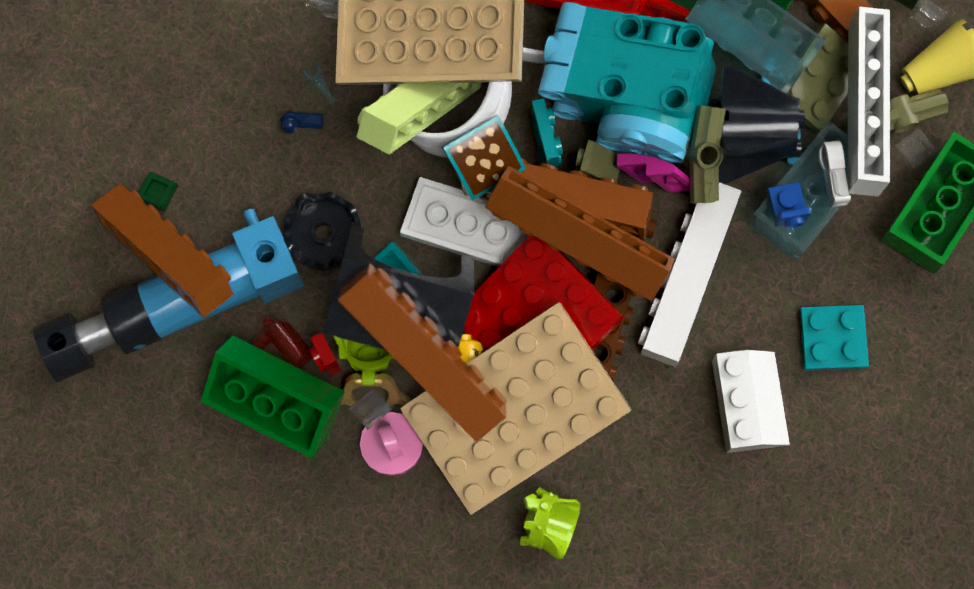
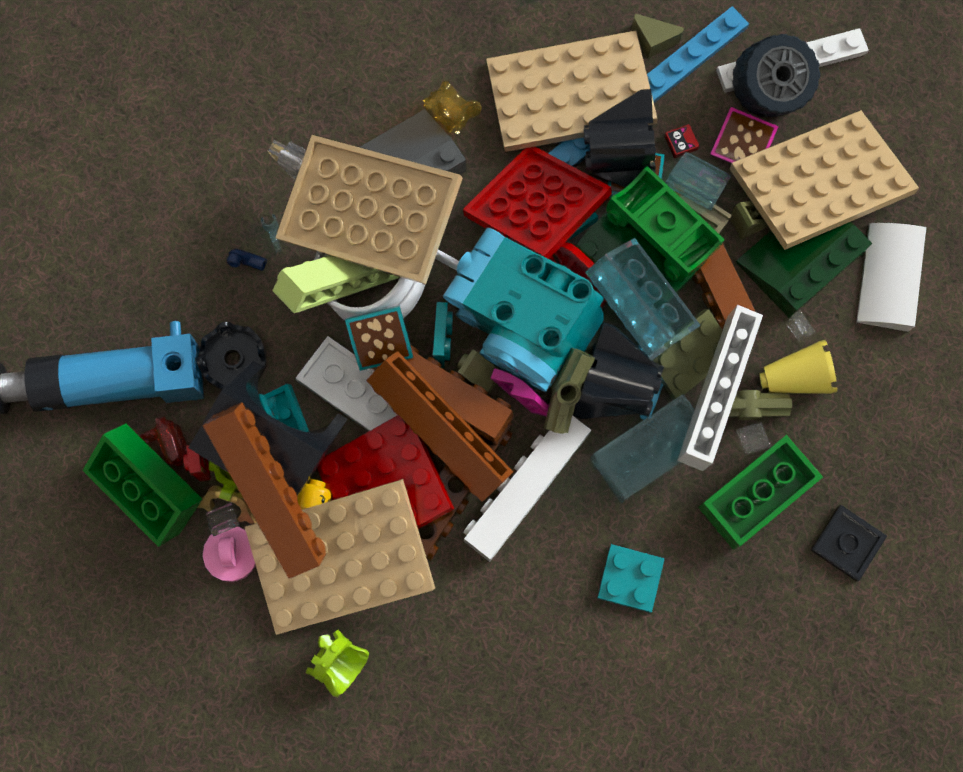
camera: 10 degrees right, 0 degrees up
(157, 191) = (108, 282): dark green tile -> none
(163, 250) = (90, 334): dark orange brick -> none
(750, 400) = (542, 610): white slope -> none
(788, 206) = (624, 455): blue bracket -> none
(833, 164) = (672, 439): white piece -> none

